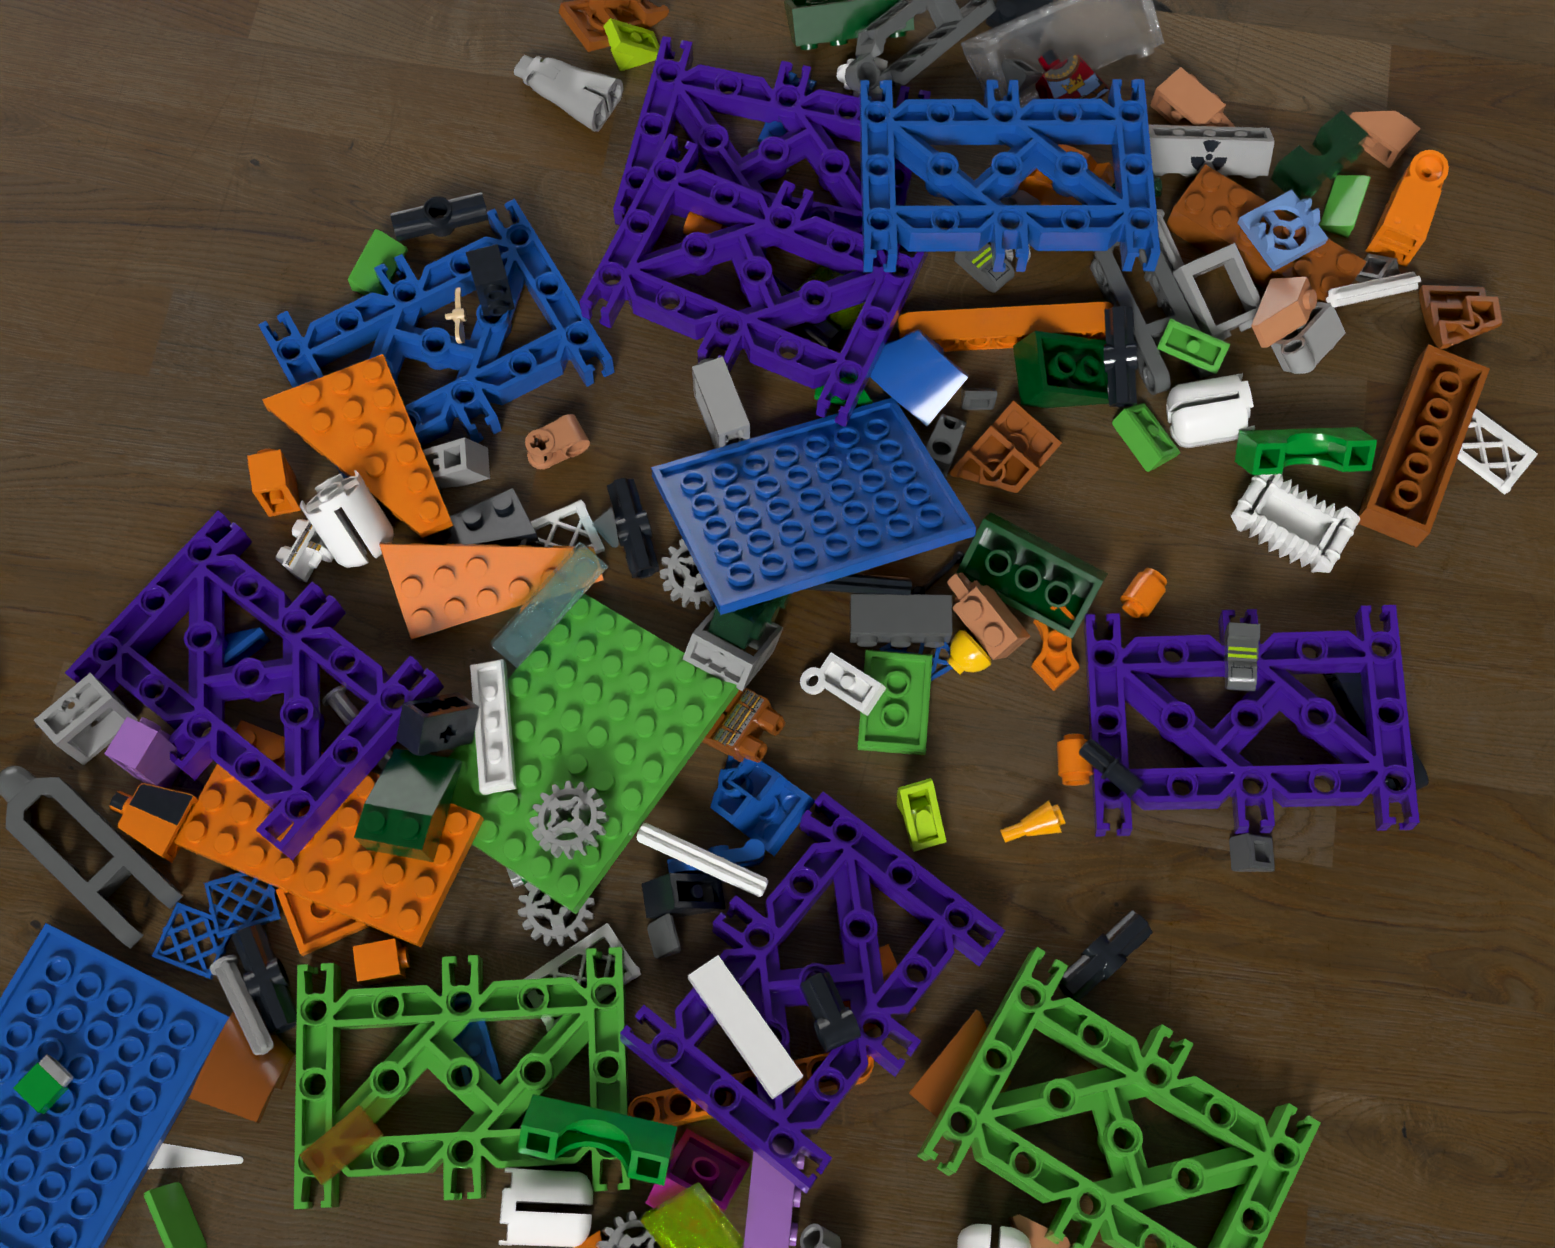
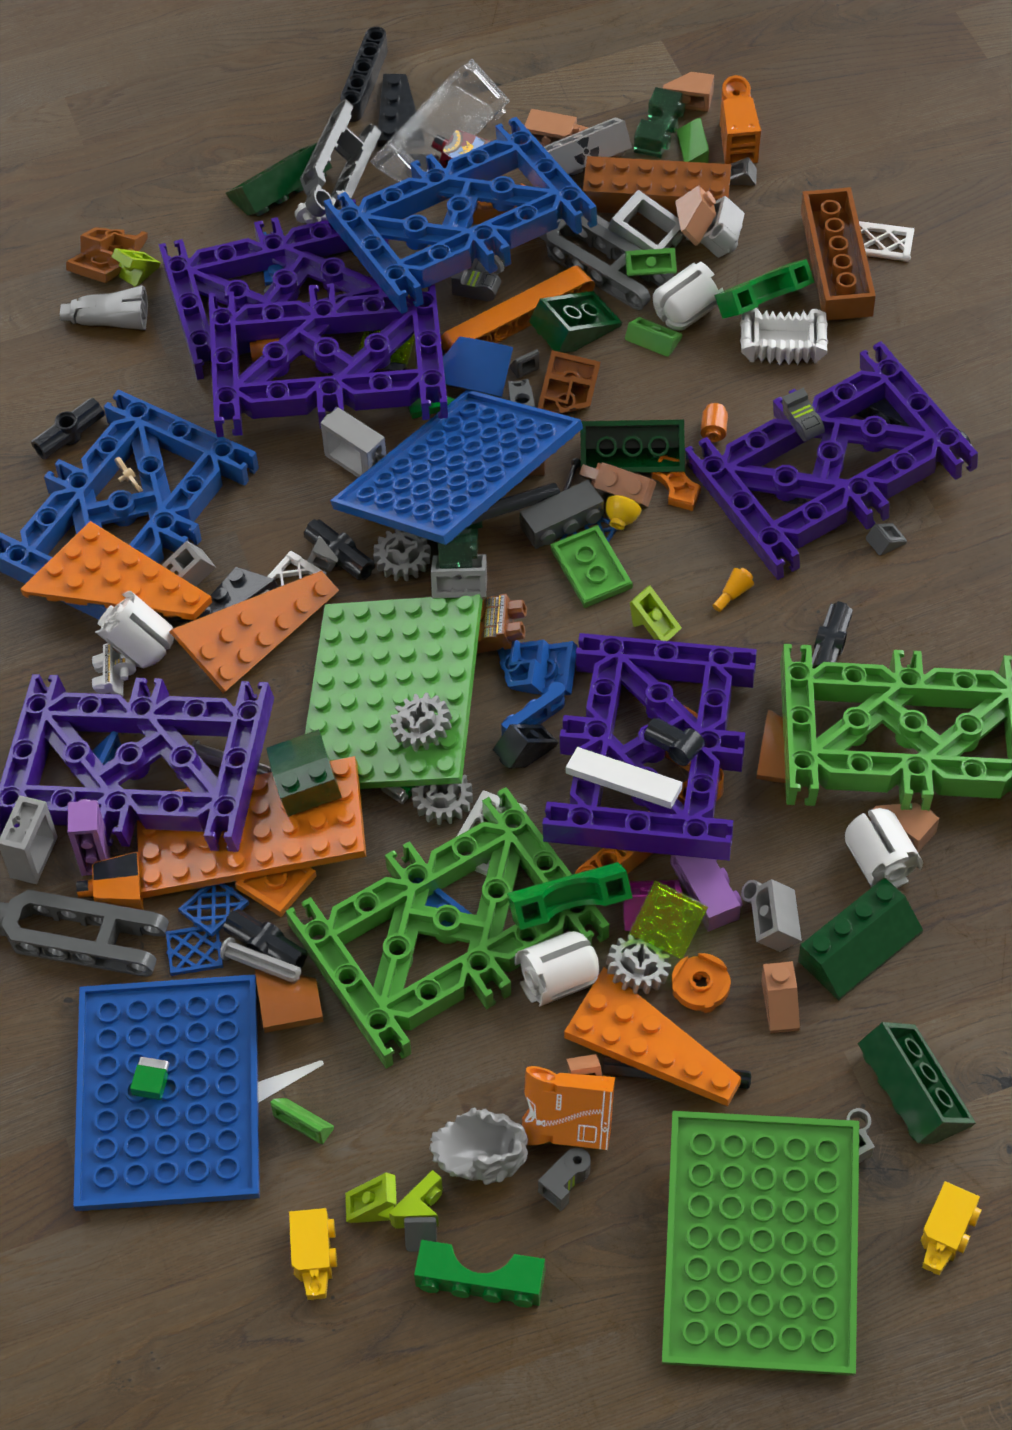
camera: 25 degrees left, 15 degrees down
(273, 482) = (62, 638): orange brick -> none
(341, 1145) = (392, 998): clear orange tile -> none
(378, 250) = (36, 470): bright green slope -> none
(380, 962) = (339, 885): orange brick -> none
(437, 723) = (286, 717): black brick -> none
(490, 280) = (141, 437): black brick -> none
(493, 727) = (324, 707): white tile -> none
(548, 604) = (314, 615): clear light blue brick -> none
(558, 442) = (248, 525): nougat piece -> none
(663, 937) = (529, 776): dark grey slope -> none
(702, 859) = (526, 708): white axle -> none
(844, 682) = (550, 567): white hinge -> none
(1071, 765) = (734, 539): orange brick -> none
(1110, 767) = (762, 523): black axle -> none
(1120, 356) = (606, 291): black piece -> none
(1265, 242) = (658, 178): medium blue piece -> none
(1373, 289) = (745, 179): white axle -> none
(1458, 313) = (809, 169): dark orange slope -> none

